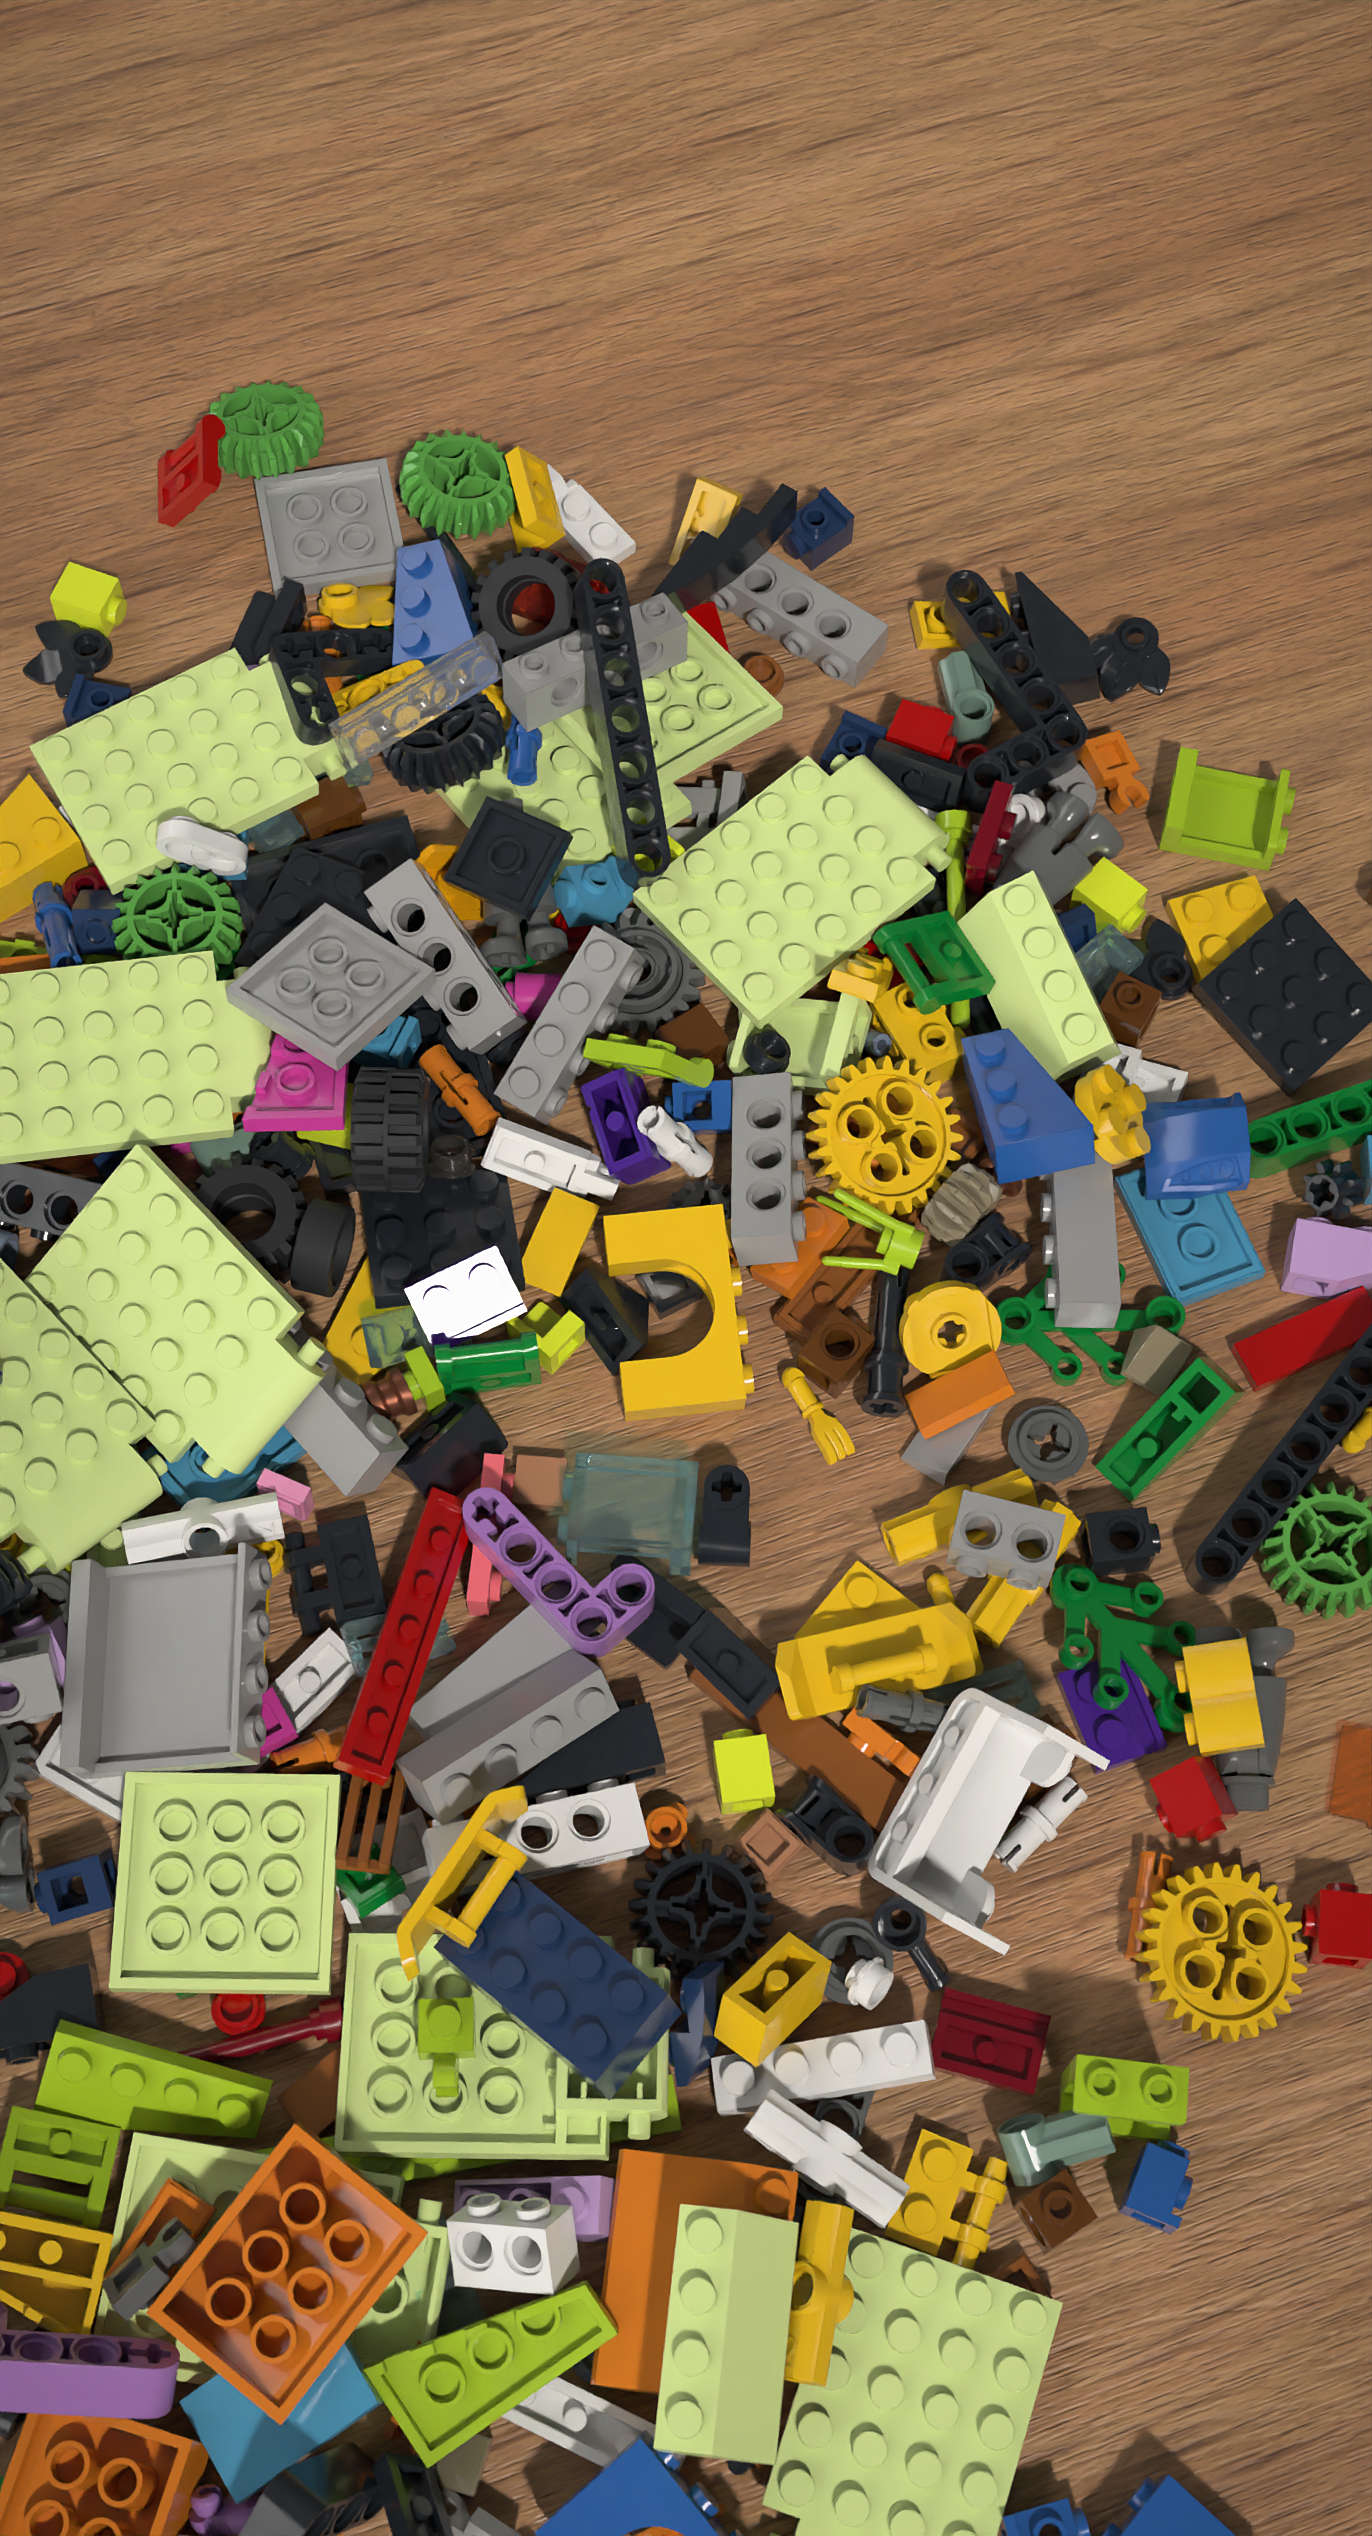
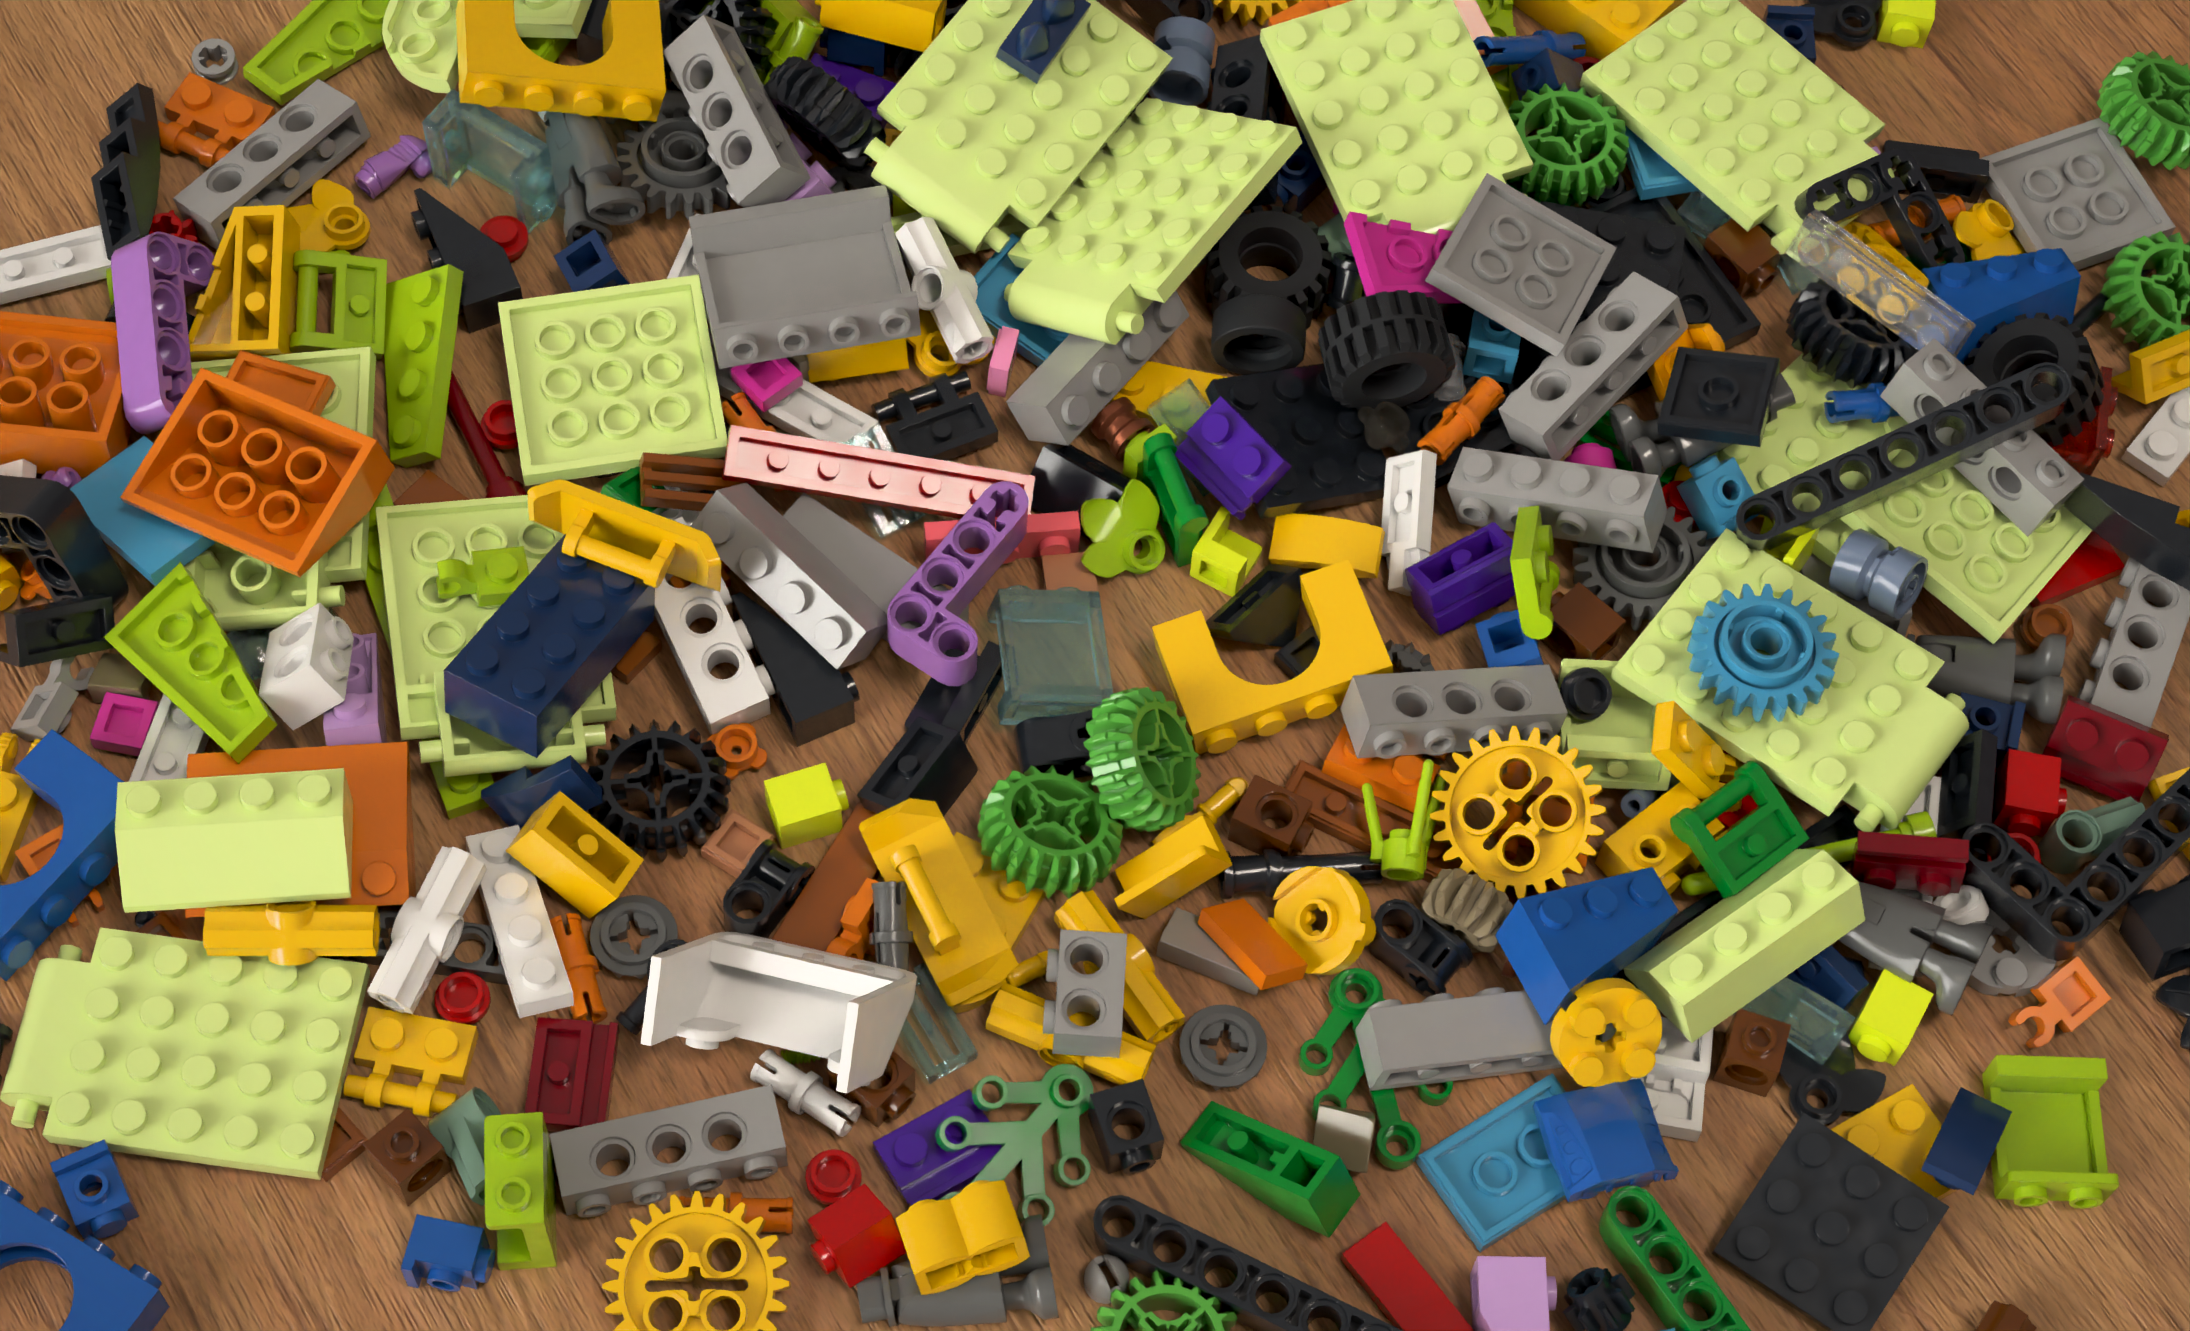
camera: 75 degrees right, 5 degrees down
(144, 2273) = (243, 368): dark grey plate -> none
(190, 472) = (2078, 55): red plate -> none
(200, 846) = (1647, 153): white plate -> none
(511, 1419) = (1116, 530): none -> lime plate
(518, 2460) = (123, 723): none -> dark pink plate
(674, 1141) = (1460, 594): white pin -> none
(710, 782) = (1873, 571): none -> sand blue wheel
(769, 1446) = (1142, 759): none -> bright green gear
(791, 917) = (1726, 653): none -> dark azure gear
(798, 1570) = (1048, 844): none -> bright green gear
(801, 730) = (1990, 670): none -> dark grey piece
(861, 2019) = (580, 968): none -> orange pin
(868, 1982) = (606, 943): white plate -> none
(875, 1447) = (1171, 868): none -> yellow panel
(888, 2139) = (463, 998): none -> red plate
(893, 667) = (2105, 749): none -> dark red plate
(1084, 1871) = (640, 1138): none -> light grey brick
(1123, 1813) = (832, 1176): none -> red plate
(1238, 867) = (1966, 1141): none -> dark blue slope
(1255, 1599) = (1096, 1283): none -> light grey hinge

